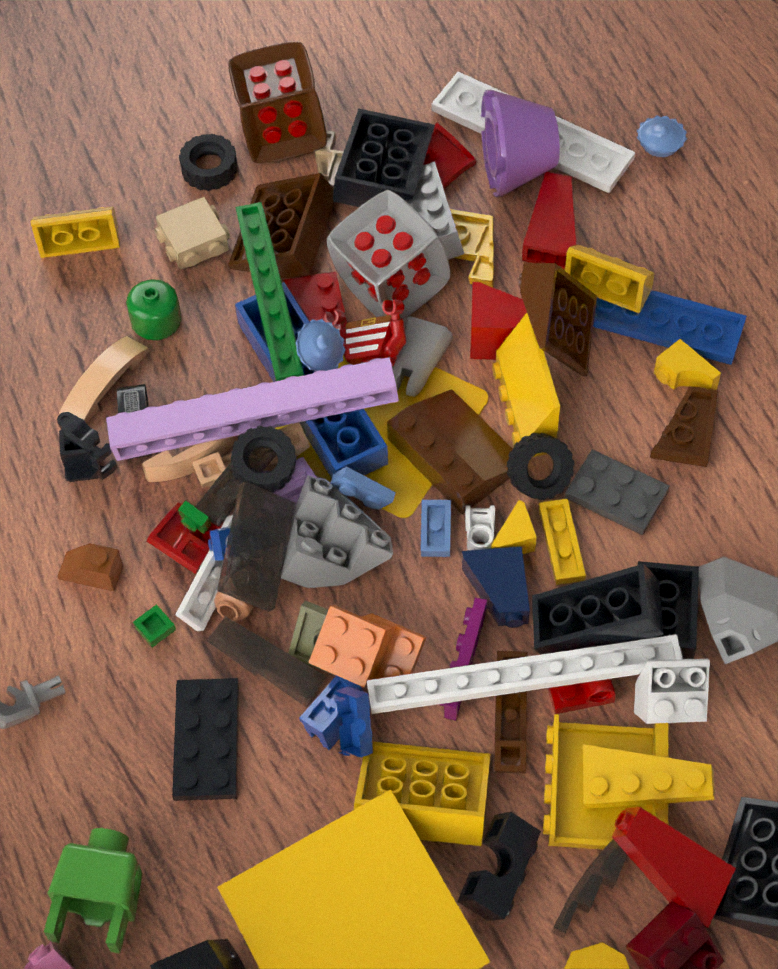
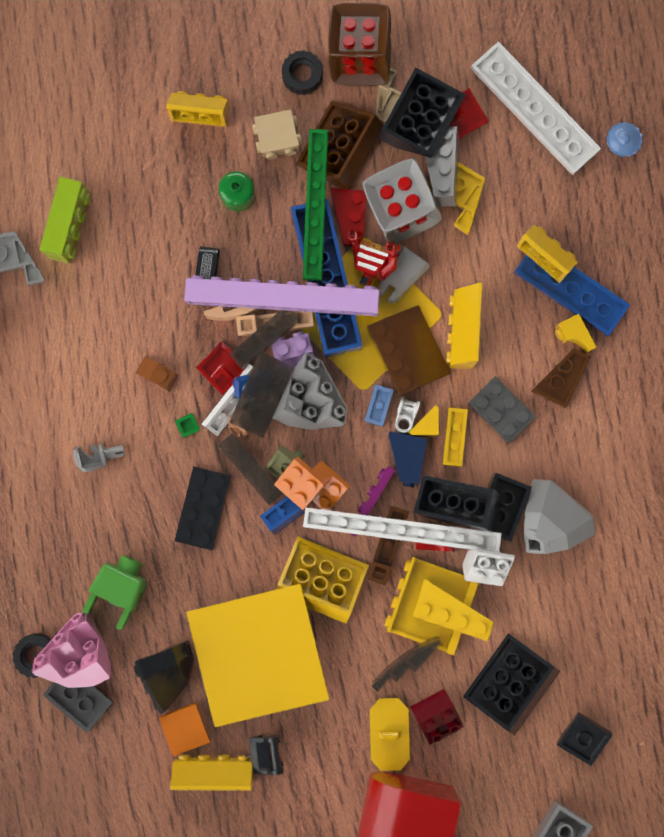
camera: 15 degrees right, 25 degrees up
(79, 450) = (166, 292): black piece -> none
(102, 376) = (192, 233): light nougat slope -> none
(193, 518) = (227, 362): green plate -> none
(271, 439) = (294, 340): black tyre -> none
(320, 345) = (337, 263): medium blue piece -> none
(356, 725) = (292, 531): blue piece -> none
(363, 488) = (333, 366): medium blue plate -> none
(492, 319) = (463, 268): red slope -> none
(513, 844) = (346, 653): black arch -> none
(517, 140) = (519, 126): medium lavender cone -> none
(520, 458) = (452, 374): black tyre -> none
(552, 222) = (523, 196): red slope -> none
(559, 313) = (500, 284): reddish brown slope -> none
(673, 862) = (454, 672): red slope -> none

